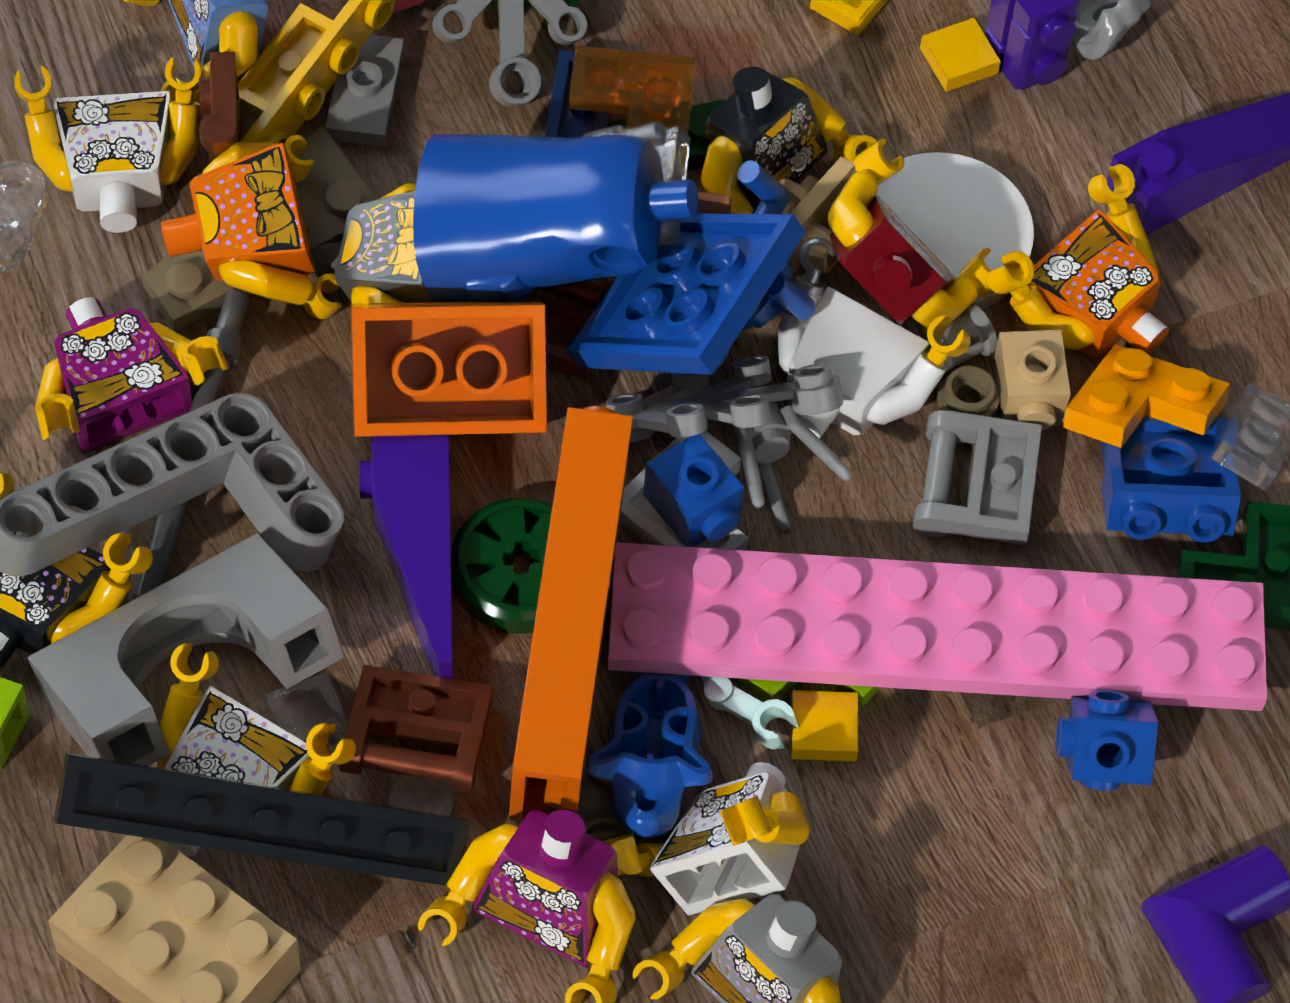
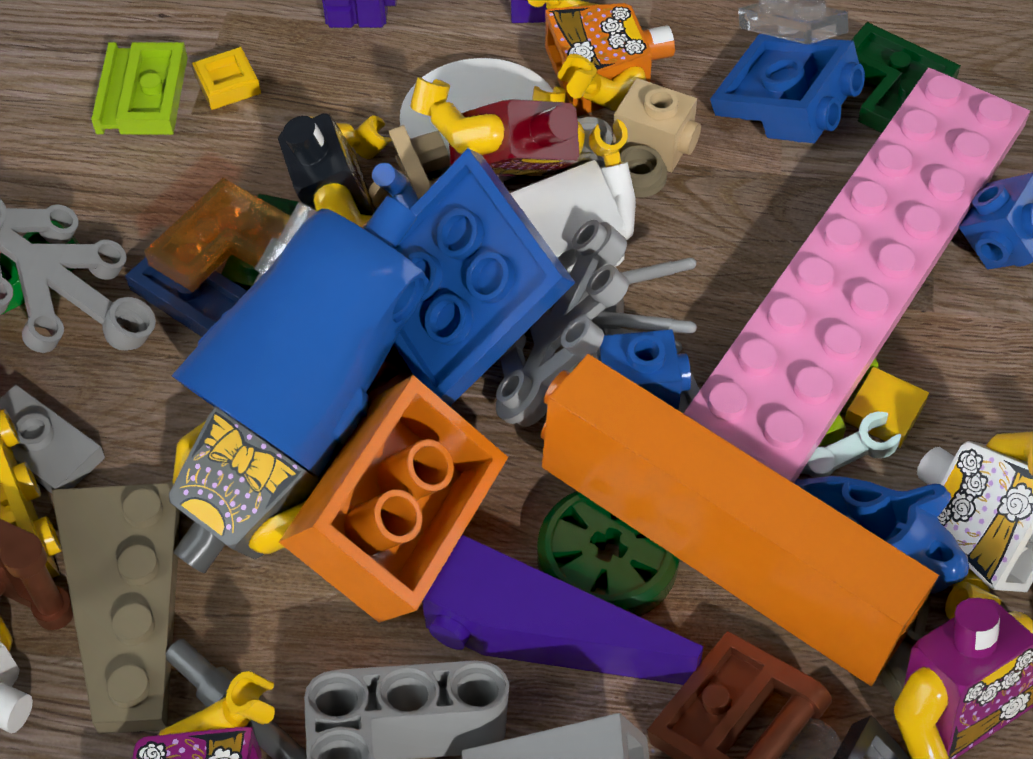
camera: 55 degrees left, 5 degrees down
(254, 225) = (129, 584): torso -> none
(960, 54) = (331, 39): yellow tile -> none
(999, 478) = (725, 185): light grey plate -> none
(1137, 385) = (712, 67): light orange plate -> none

